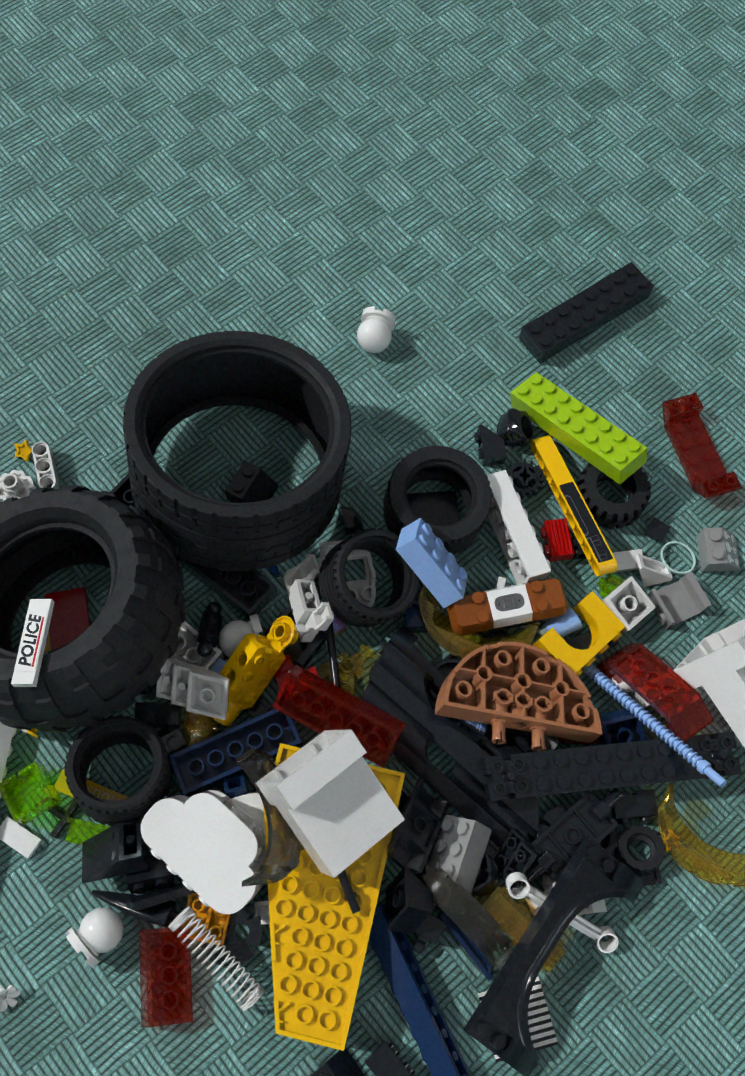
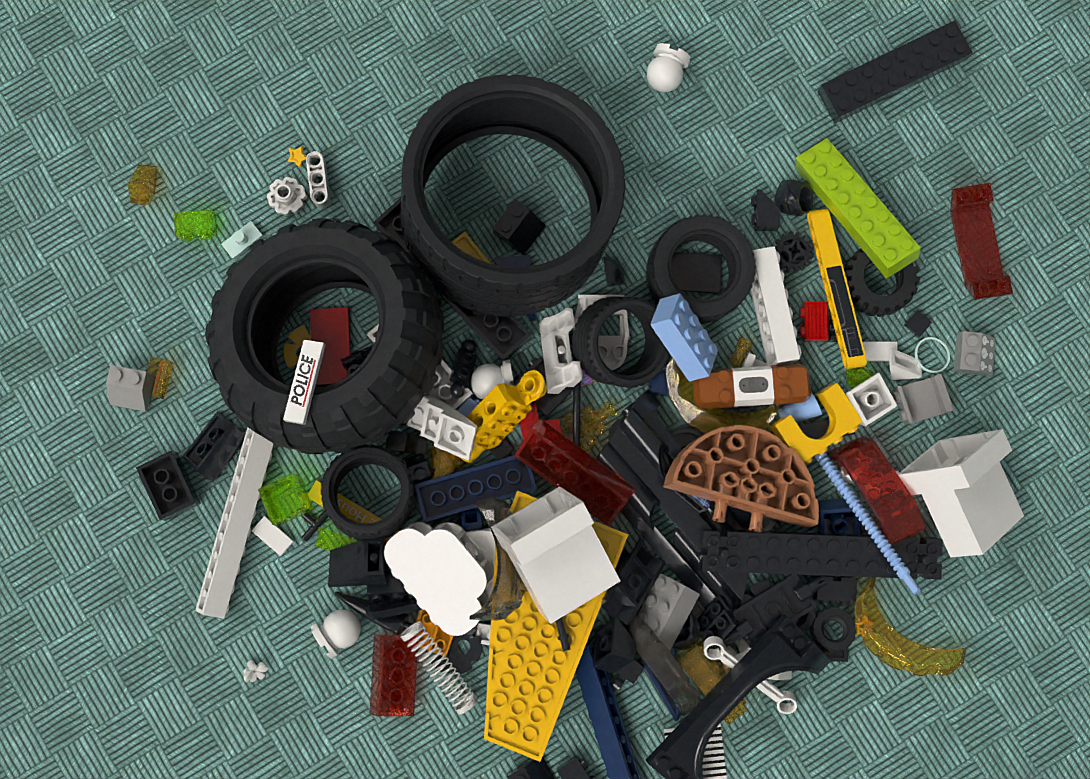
camera: 15 degrees right, 15 degrees up
(491, 574) = (743, 347): none -> clear yellow pin

